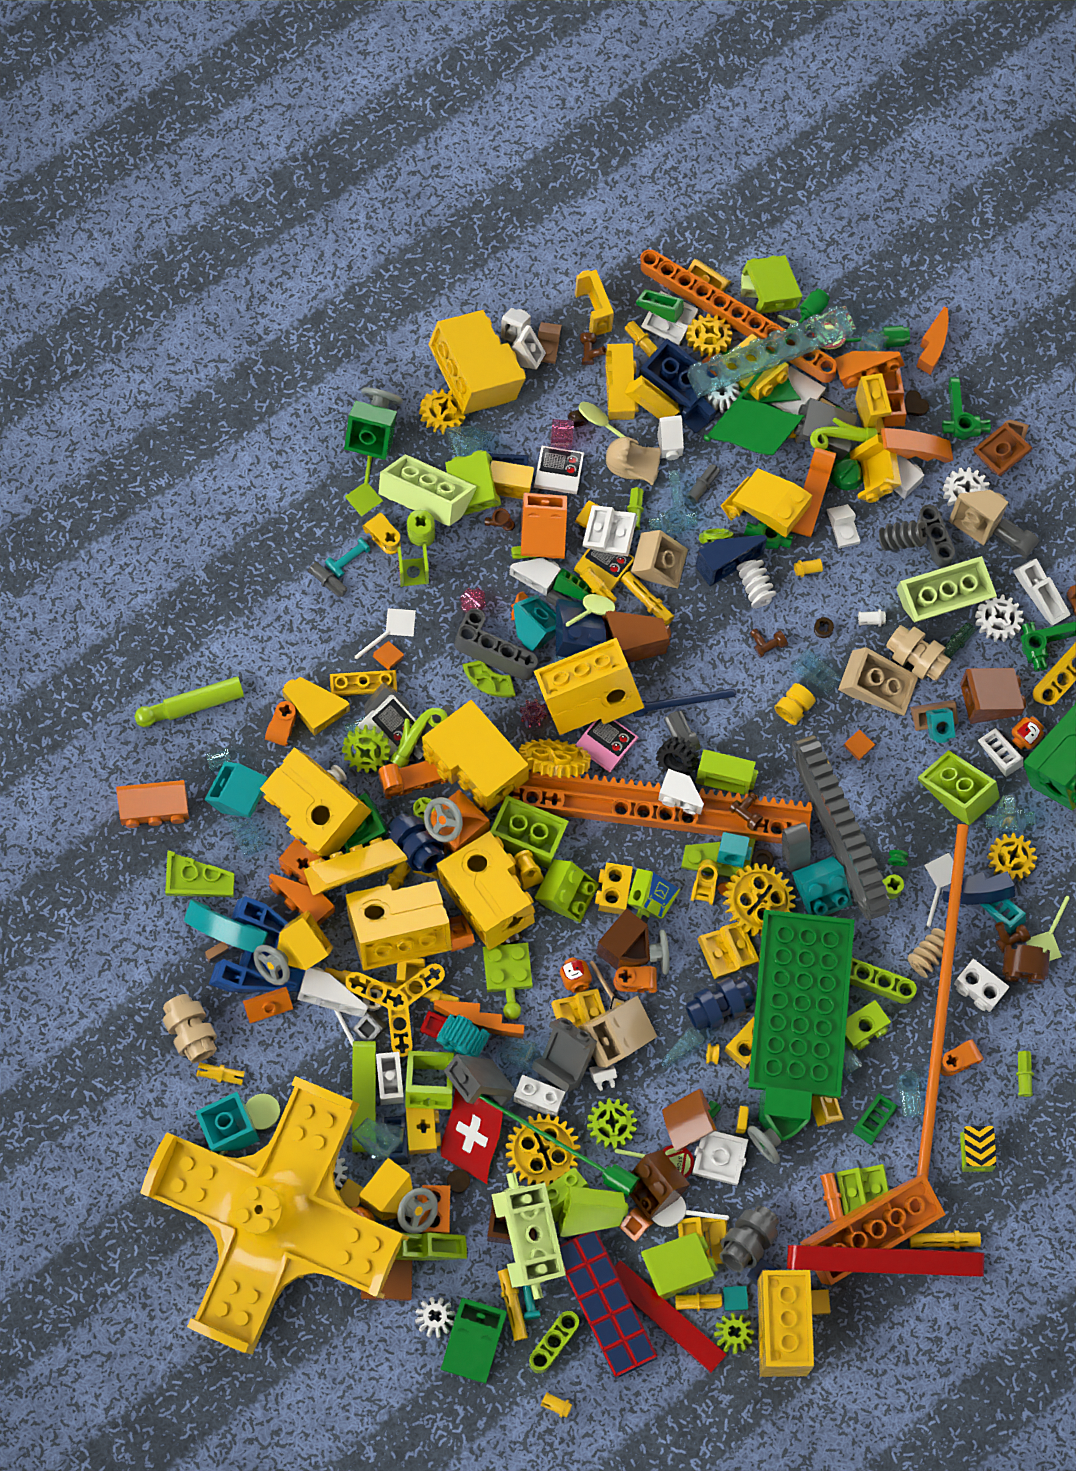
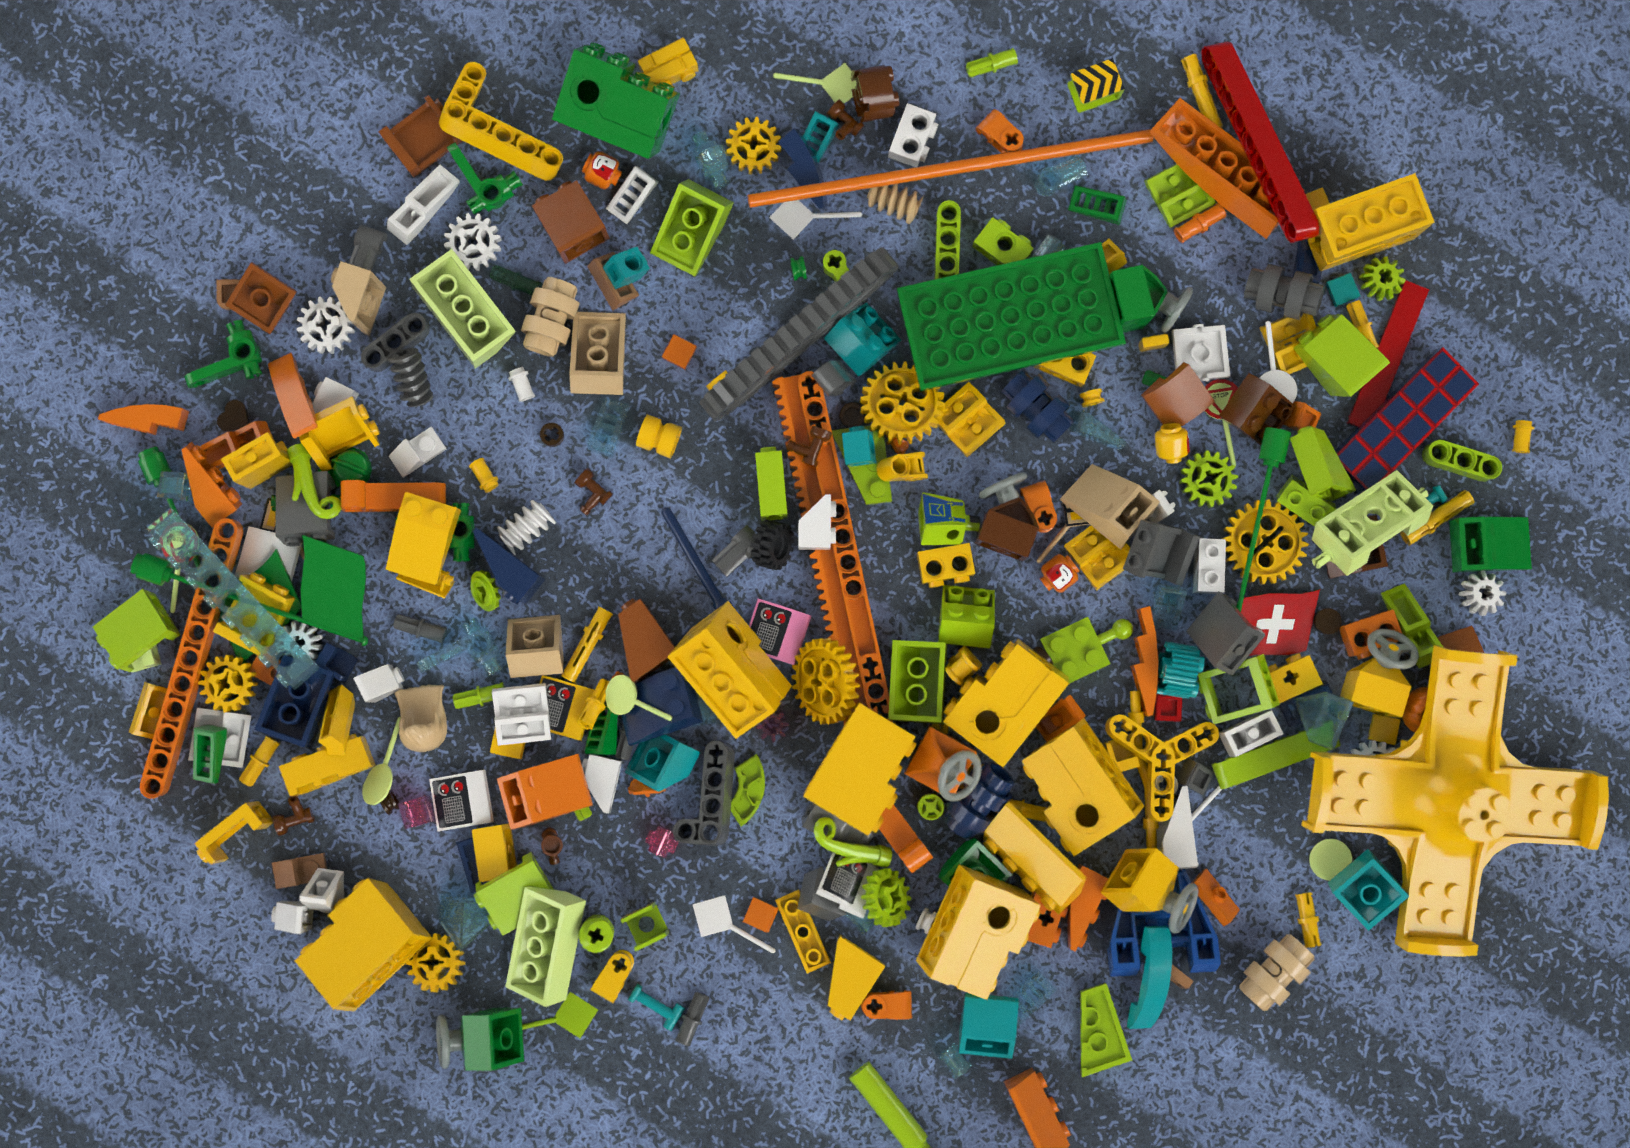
camera: 110 degrees left, 15 degrees up
(652, 1104) = (1172, 443): none -> yellow head

